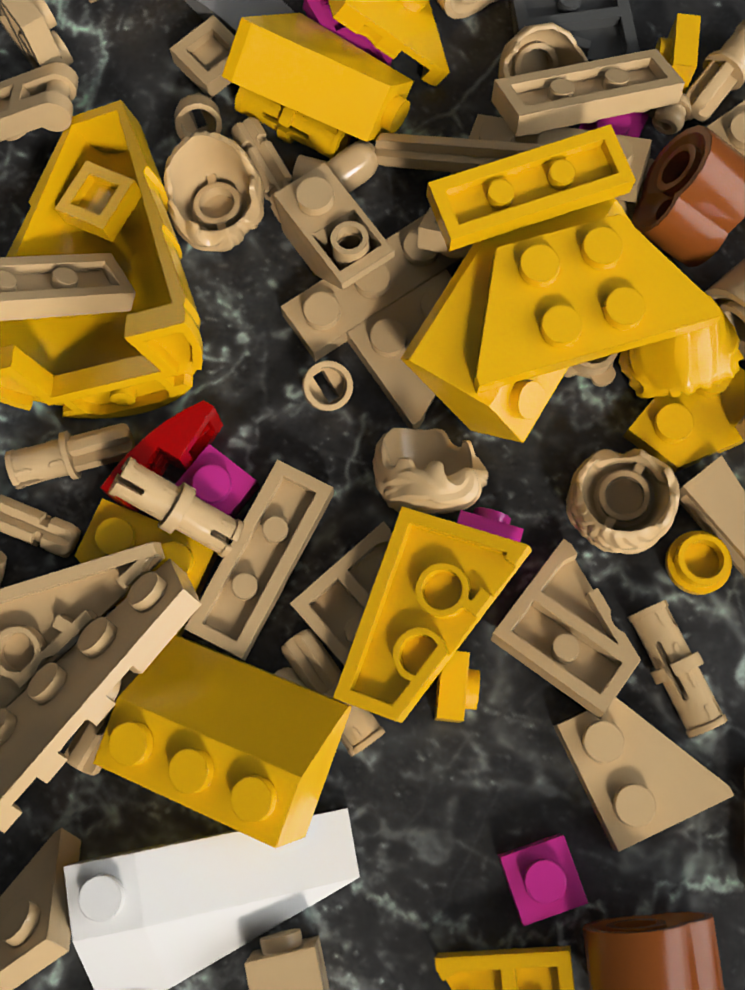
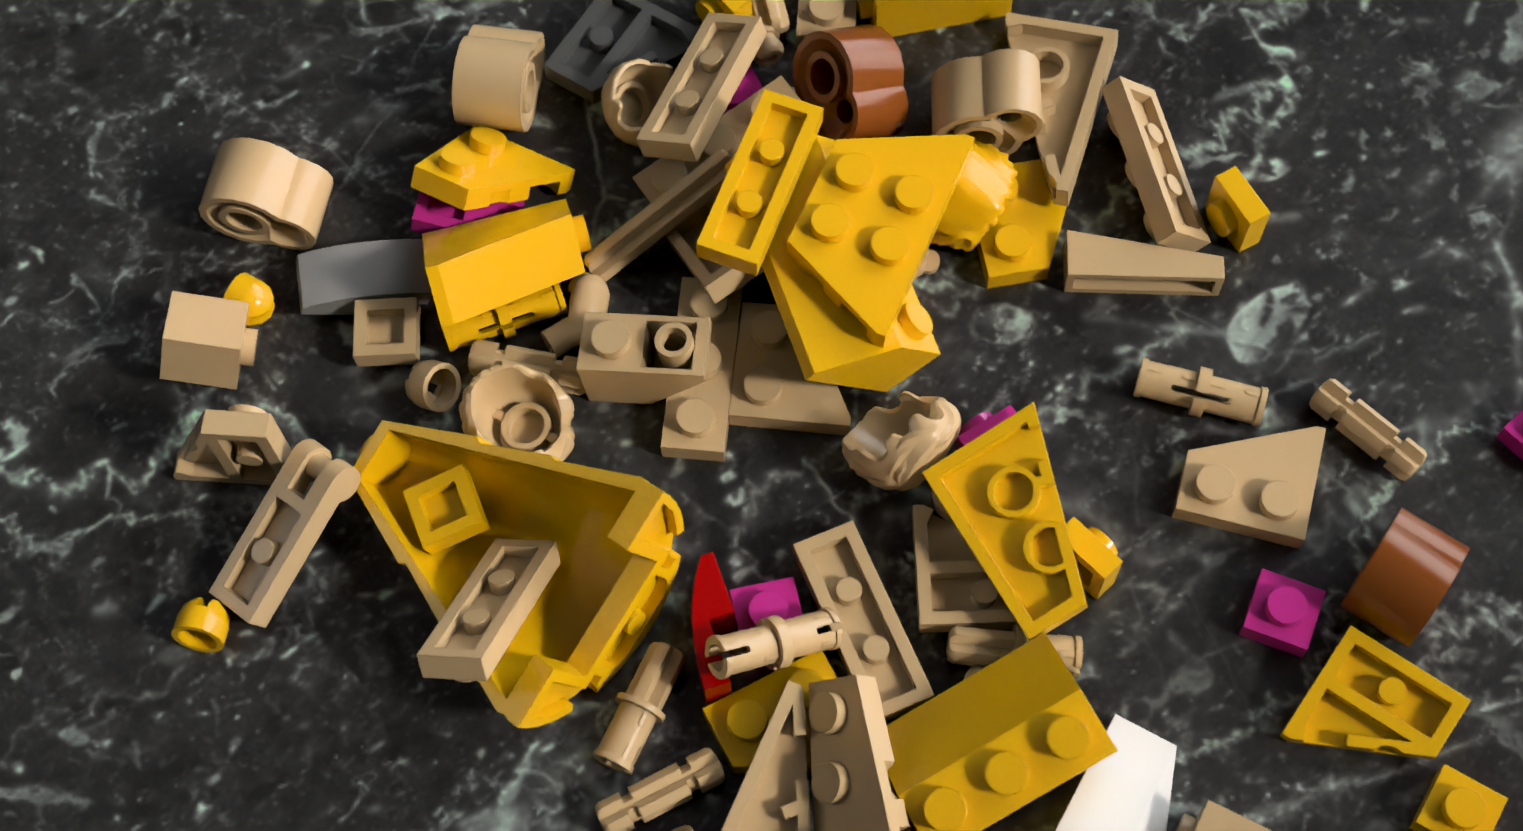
camera: 50 degrees left, 10 degrees down
(337, 378) = (762, 452): tan hinge -> none
(568, 634) = (1113, 444): tan wing -> none
(623, 500) = (1043, 323): tan hair -> none
(698, 562) = (1133, 313): yellow plate -> none

